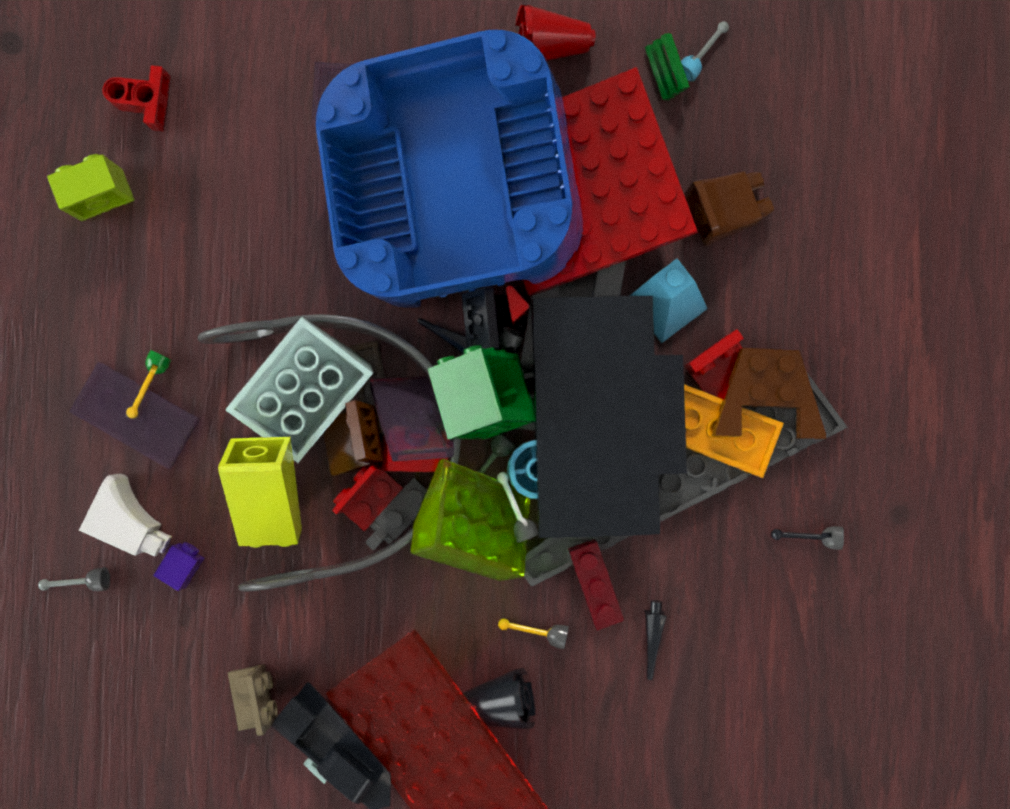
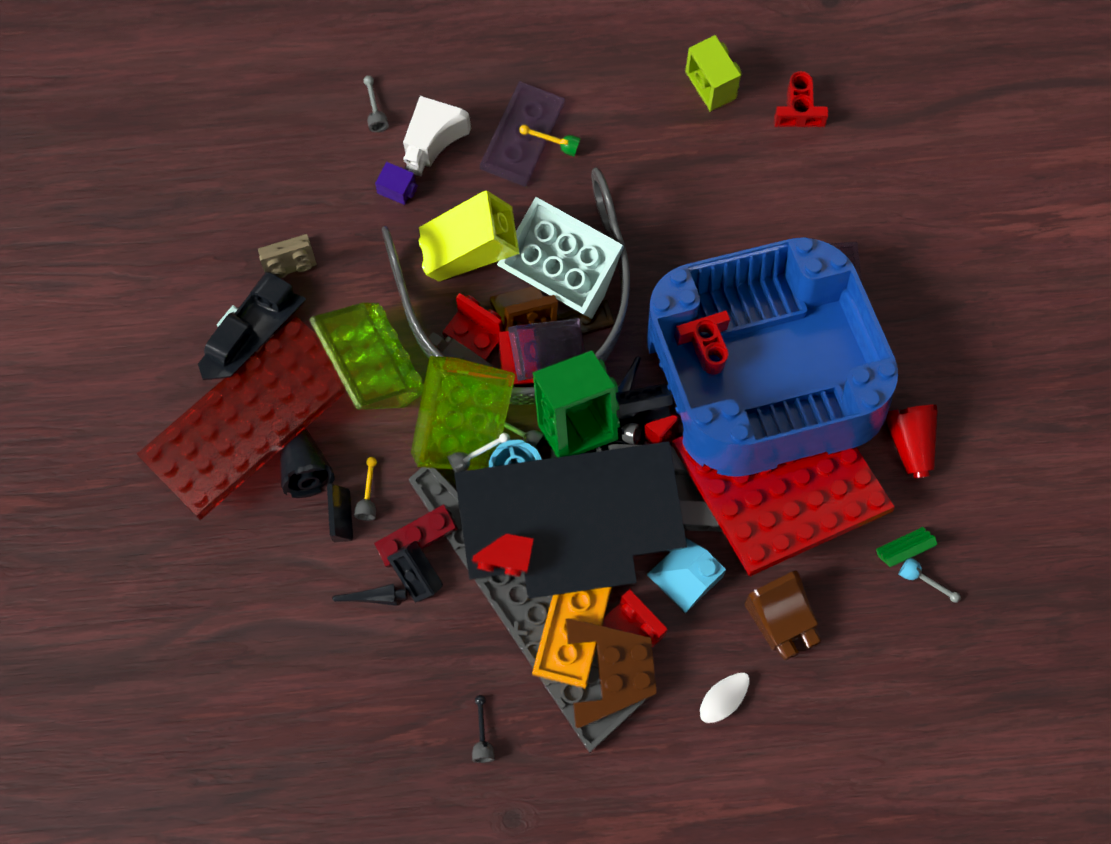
camera: 80 degrees right, 15 degrees down
(390, 621) = (368, 356): none -> clear neon green slope
(431, 245) = (706, 346): none -> red tile
(559, 664) = (339, 513): none -> black slope
(635, 589) = (415, 571): none -> black slope
(643, 491) = (506, 553): none -> red slope
(804, 281) = (724, 698): none -> white arm

